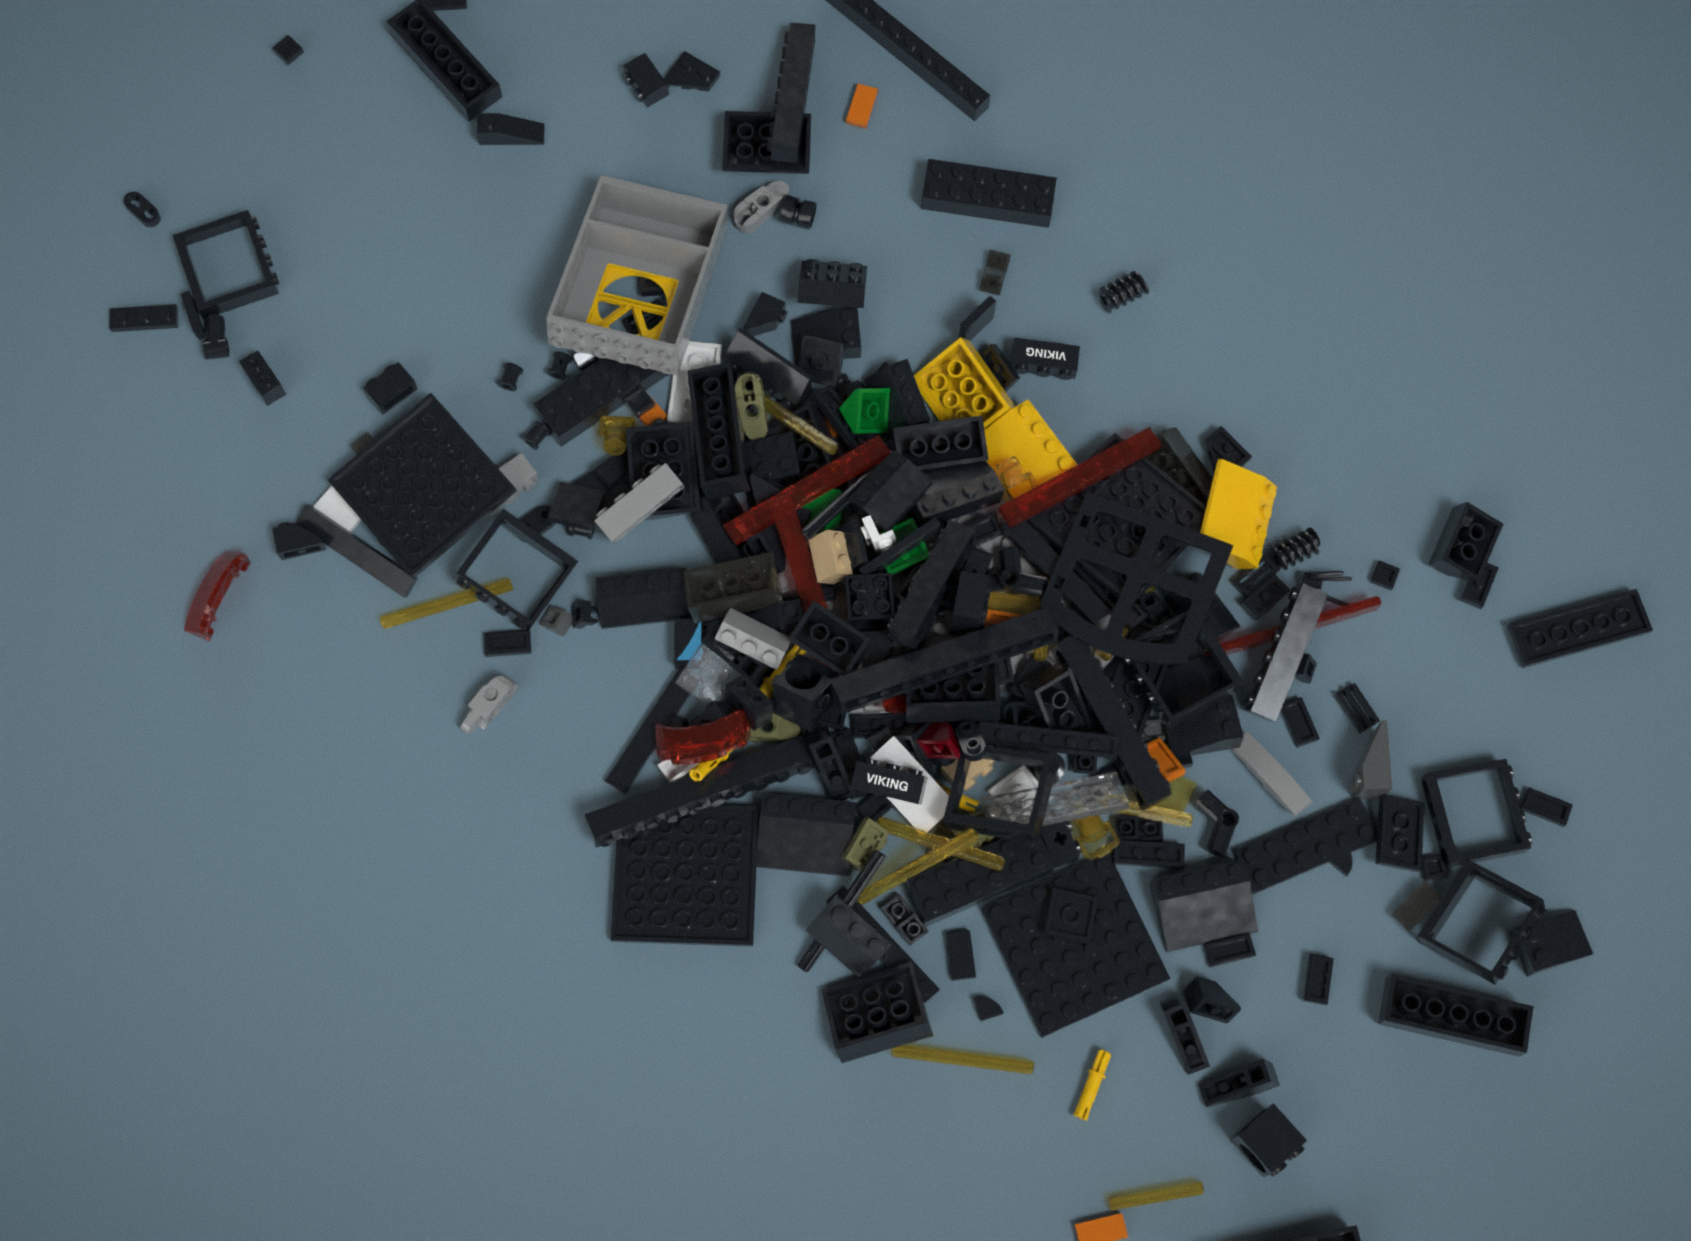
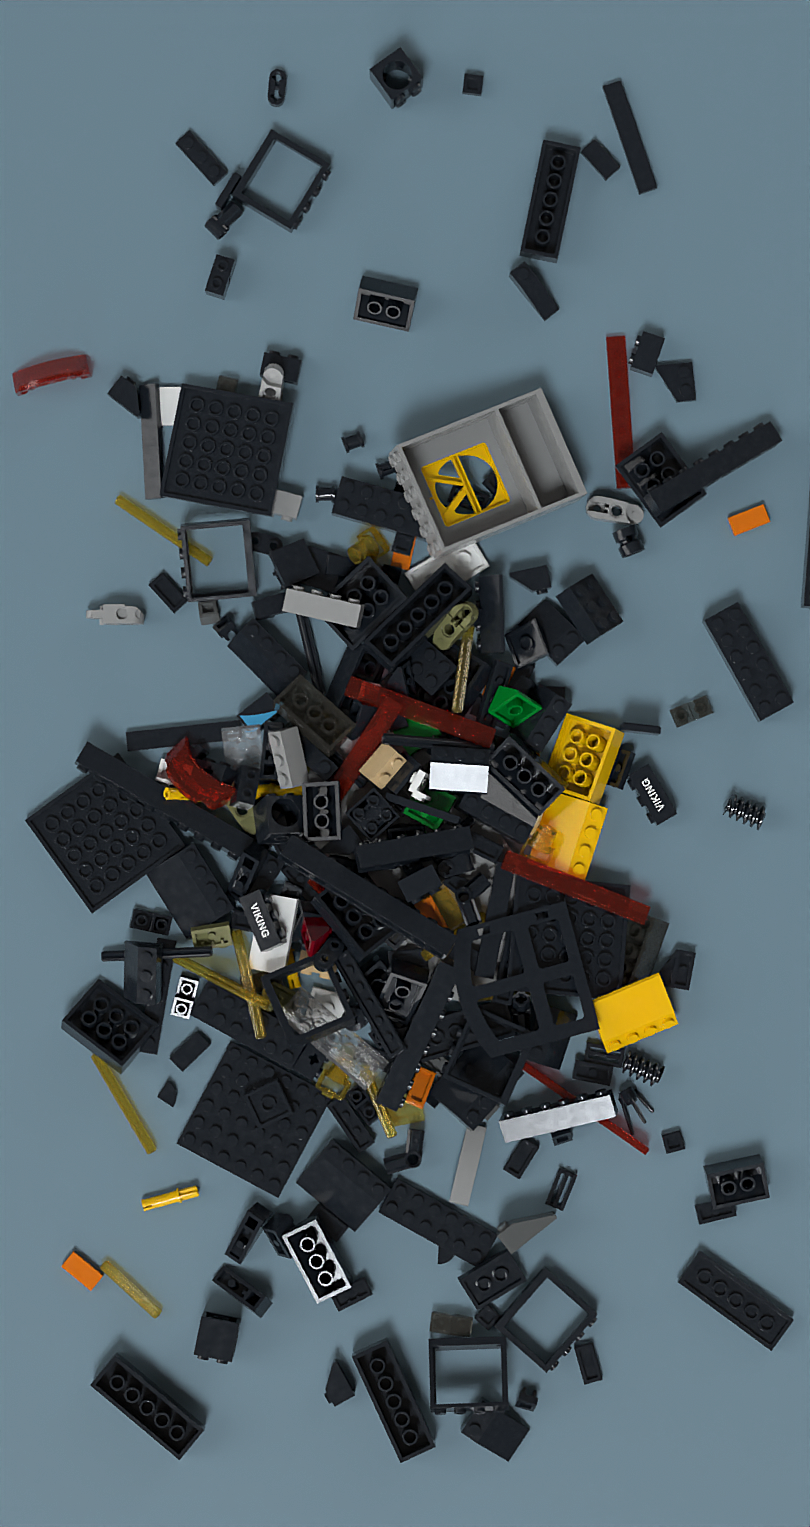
camera: 55 degrees right, 15 degrees up
(214, 88) = (396, 61): none -> black brick
(391, 394) = (272, 383): none -> light grey piece
(412, 258) = (385, 303): none -> black slope
(598, 557) = (268, 606): none -> black slope
(655, 550) = (310, 652): none -> black axle
(674, 138) = (619, 403): none -> clear red tile
(805, 897) = (150, 922): none -> black slope
(1261, 981) = (317, 1258): none -> black slope
(1401, 1060) = (338, 1386): none -> black slope
(1546, 889) = (526, 1401): none -> black tile

